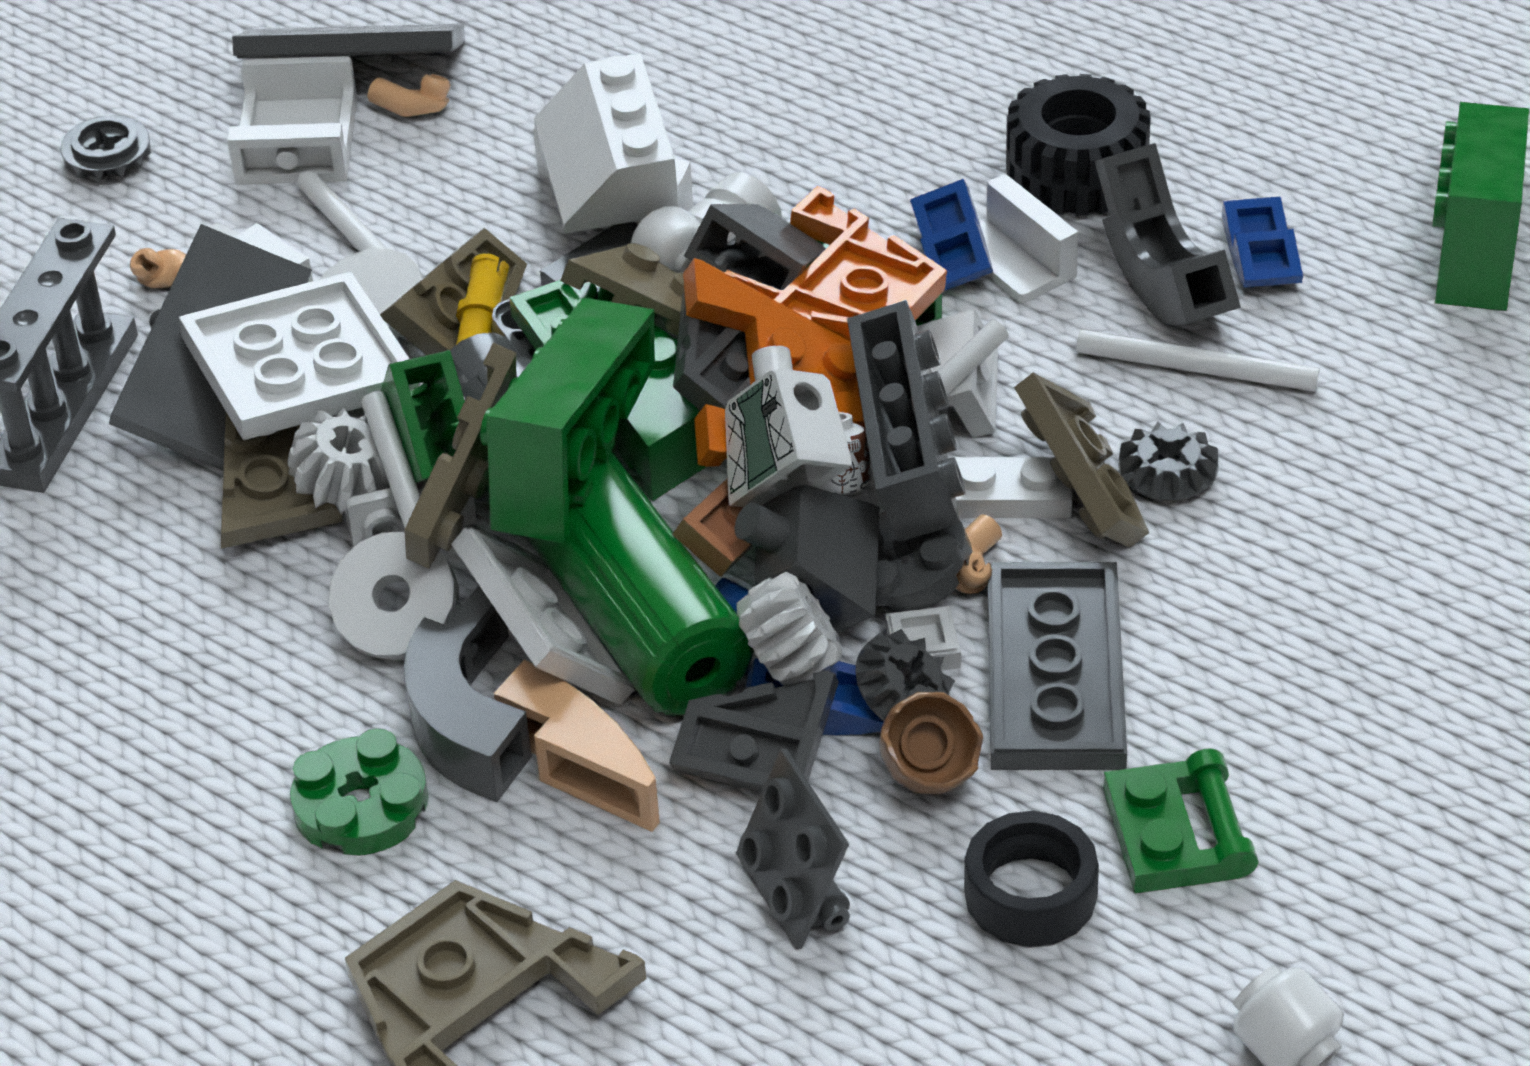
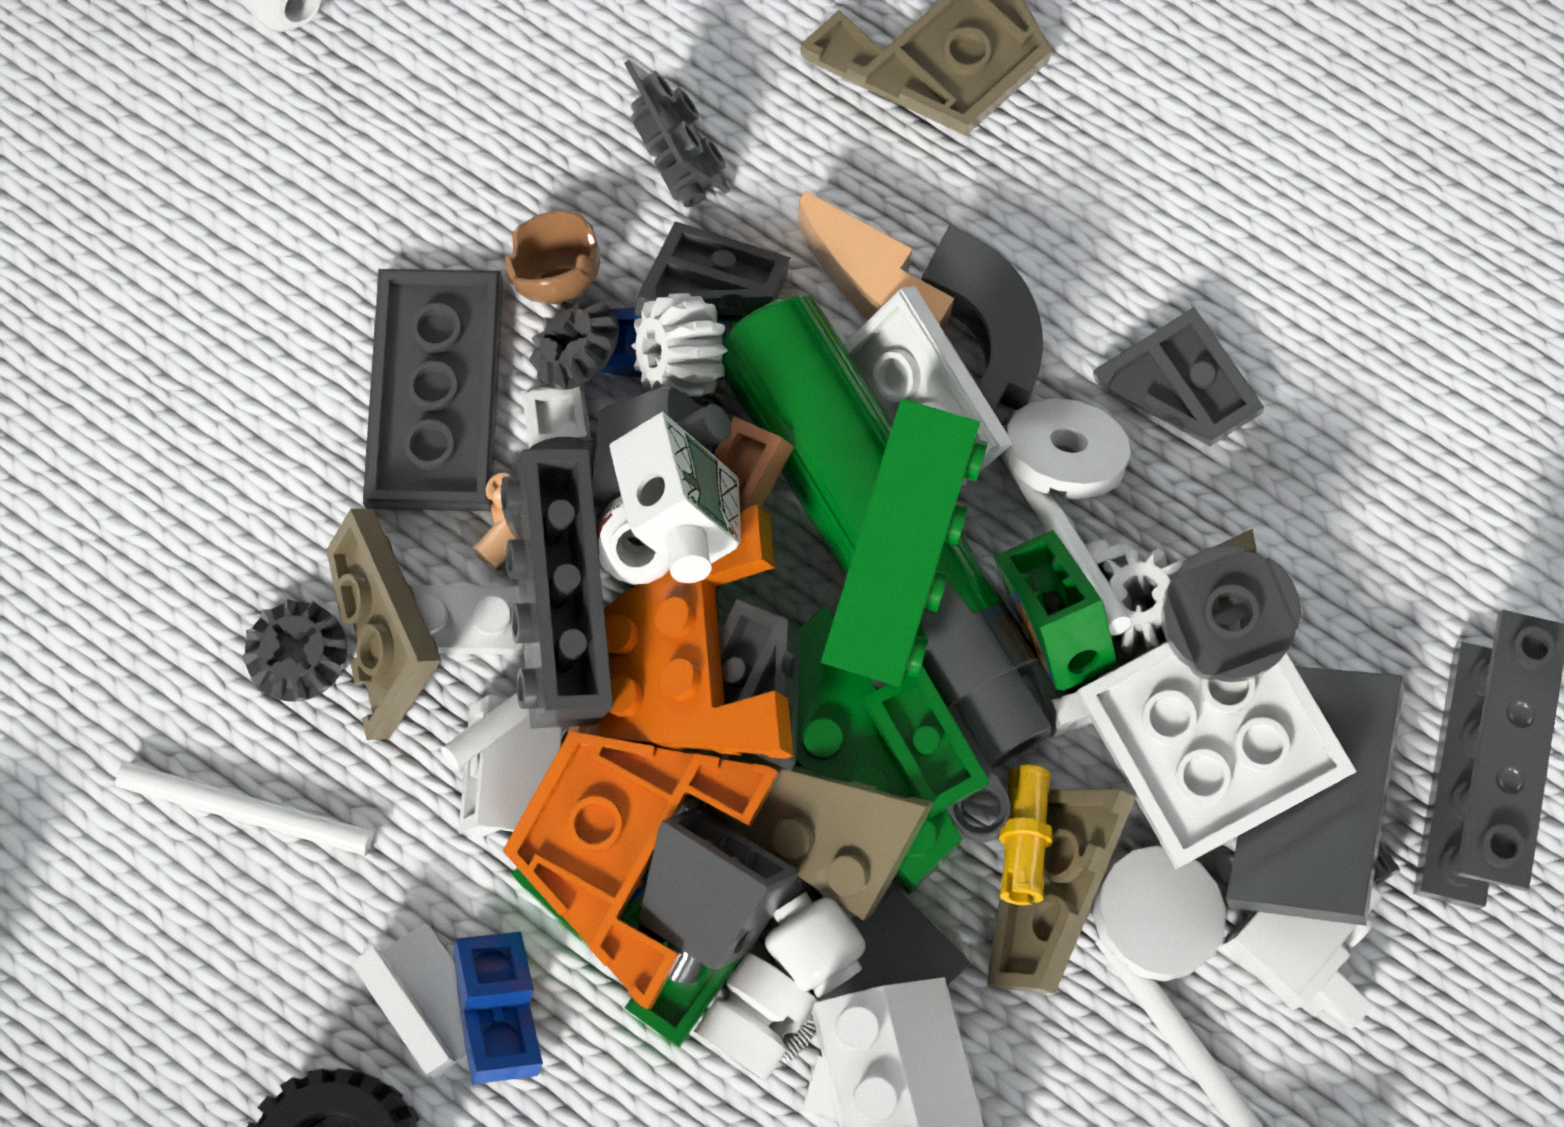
camera: 175 degrees right, 30 degrees up
(156, 268) = (1396, 985): light nougat arm -> none
(260, 669) = (1183, 380): none -> dark grey wing
(294, 405) = (1245, 578): none -> dark grey plate
(352, 763) = (1080, 213): plate -> none
(456, 478) = (1004, 504): dark tan wing -> none
(1025, 919) = (467, 93): black tyre -> none
(1152, 248) = (257, 942): dark grey arch -> none
(1157, 830) = (361, 199): green plate -> none
(1261, 242) = (145, 999): blue slope -> none

